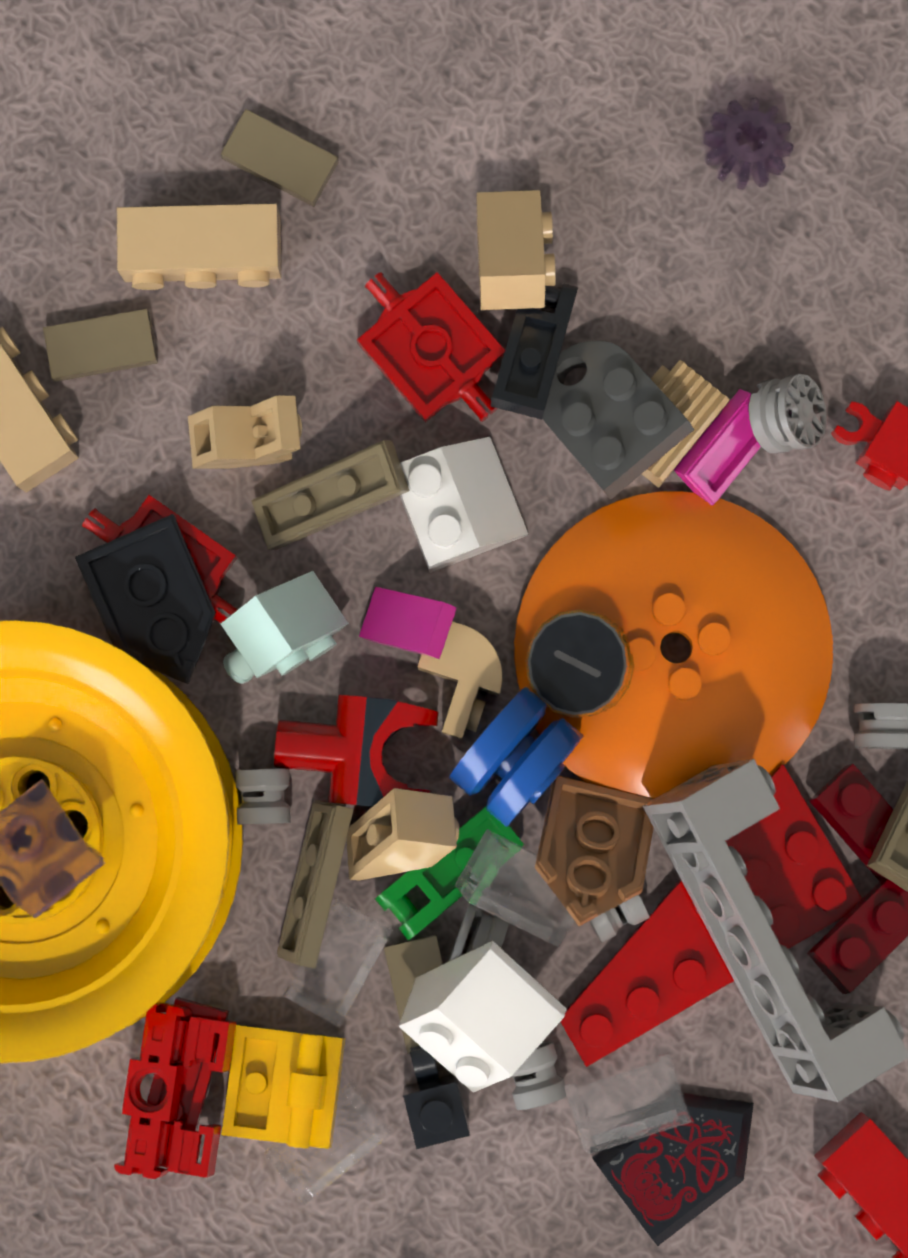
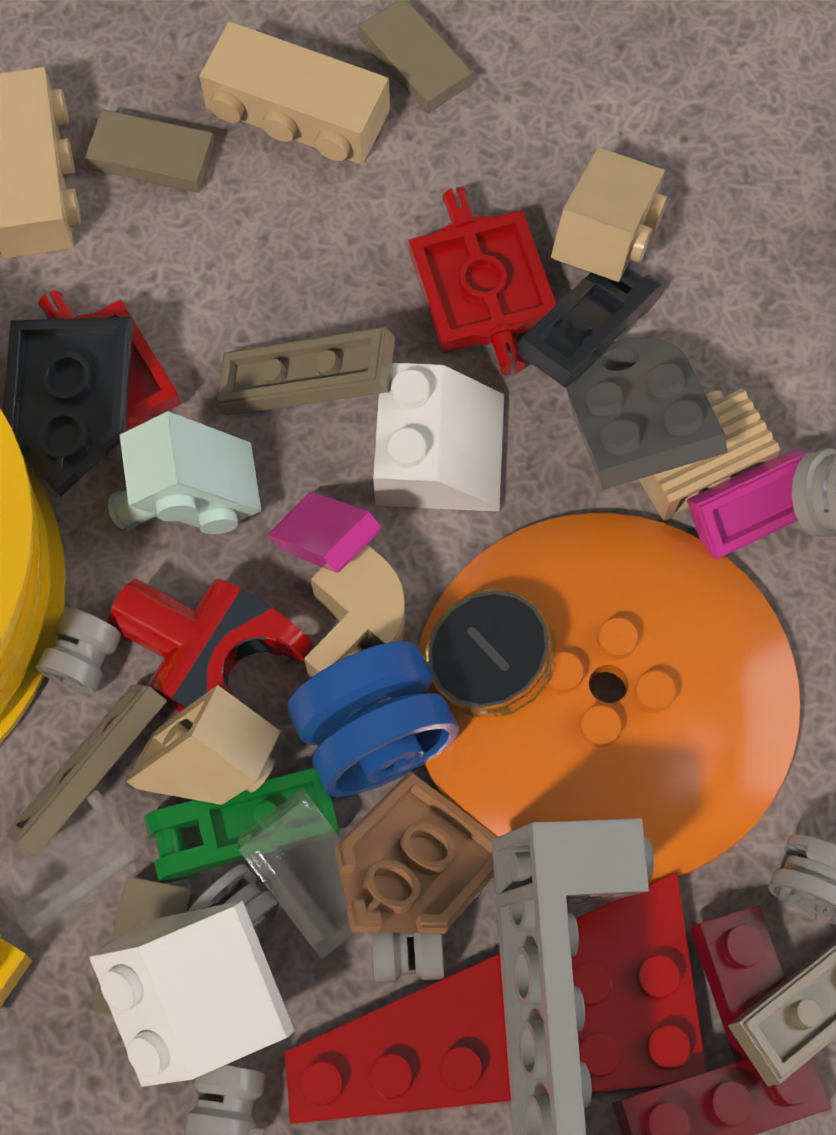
camera: 25 degrees right, 15 degrees down
(245, 434) = (247, 284): tan brick -> none
(434, 1103) = (92, 1084): black brick -> none

